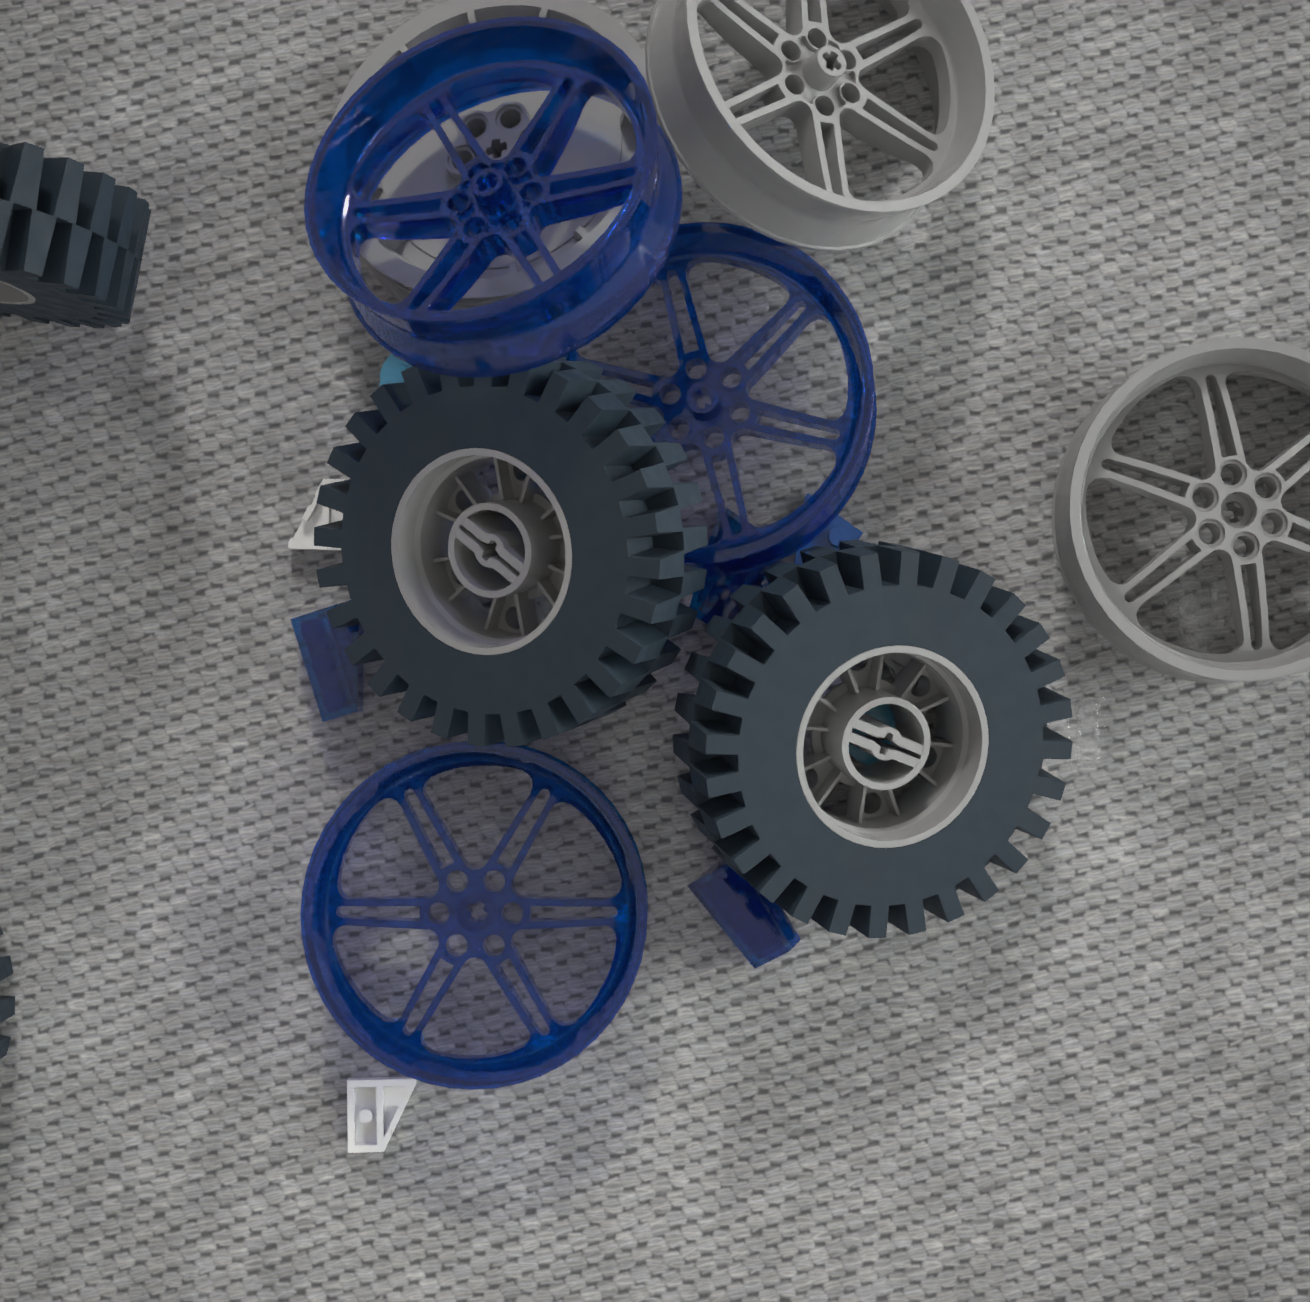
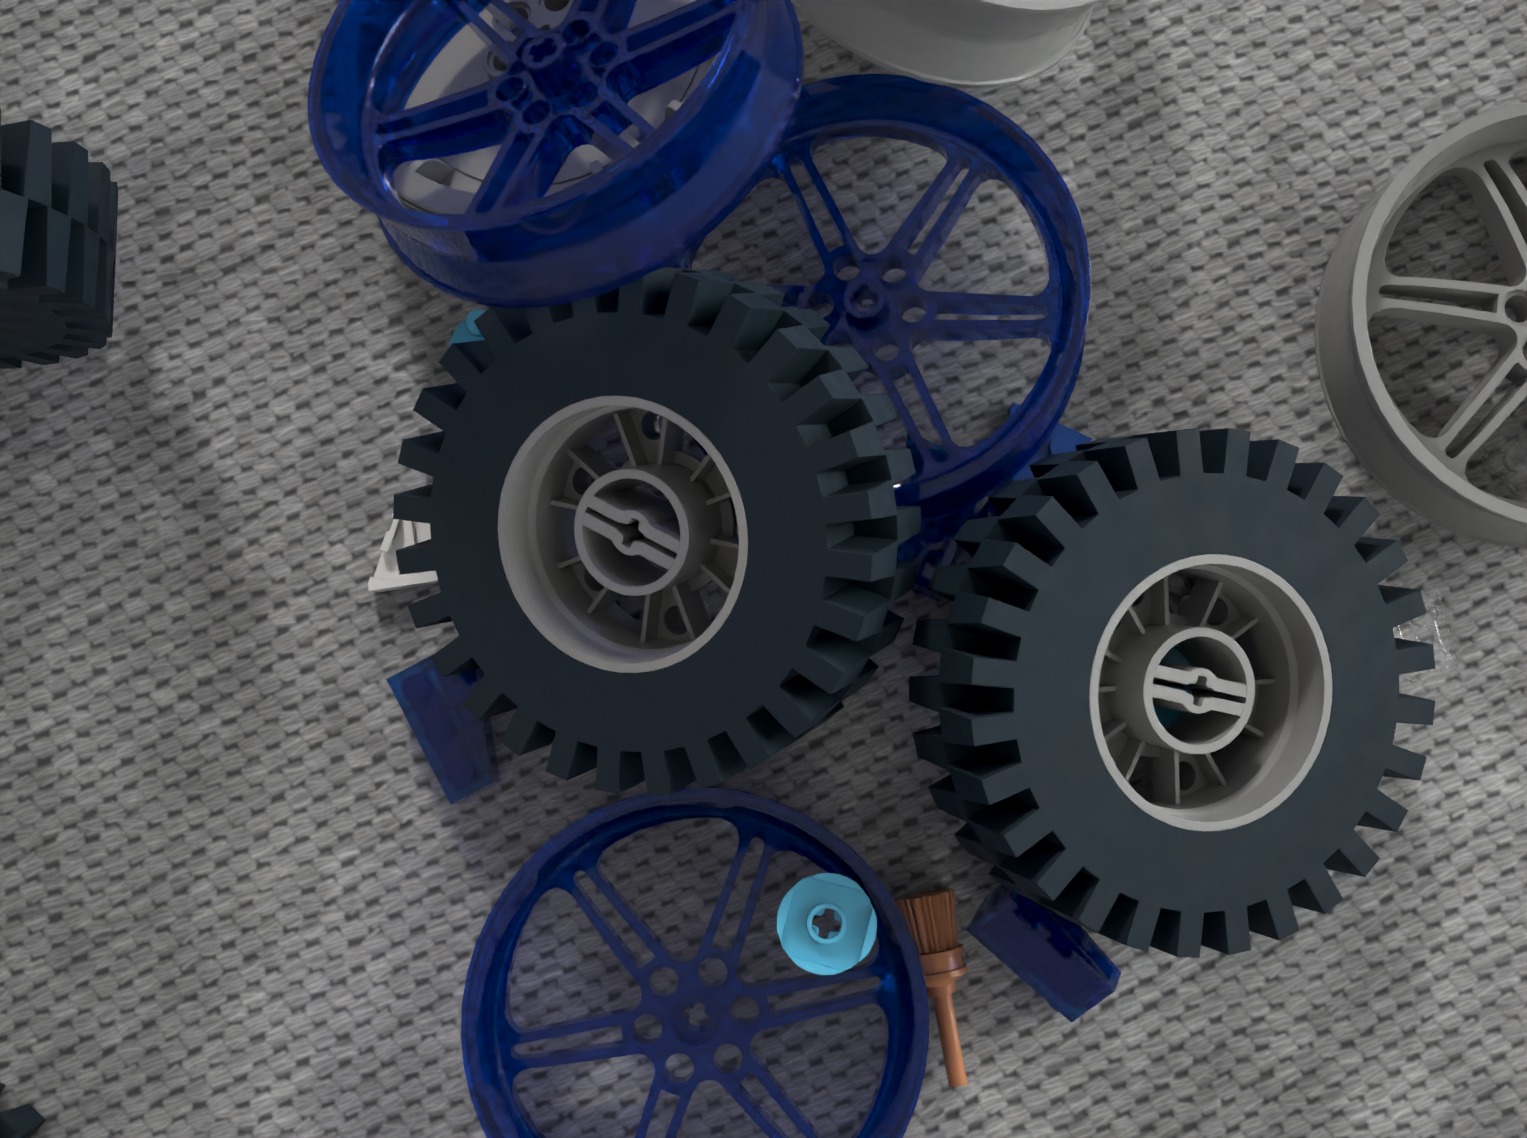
camera: 15 degrees left, 5 degrees down
(562, 867) = (841, 948): none -> medium azure plate
(665, 906) = (934, 931): none -> nougat piece

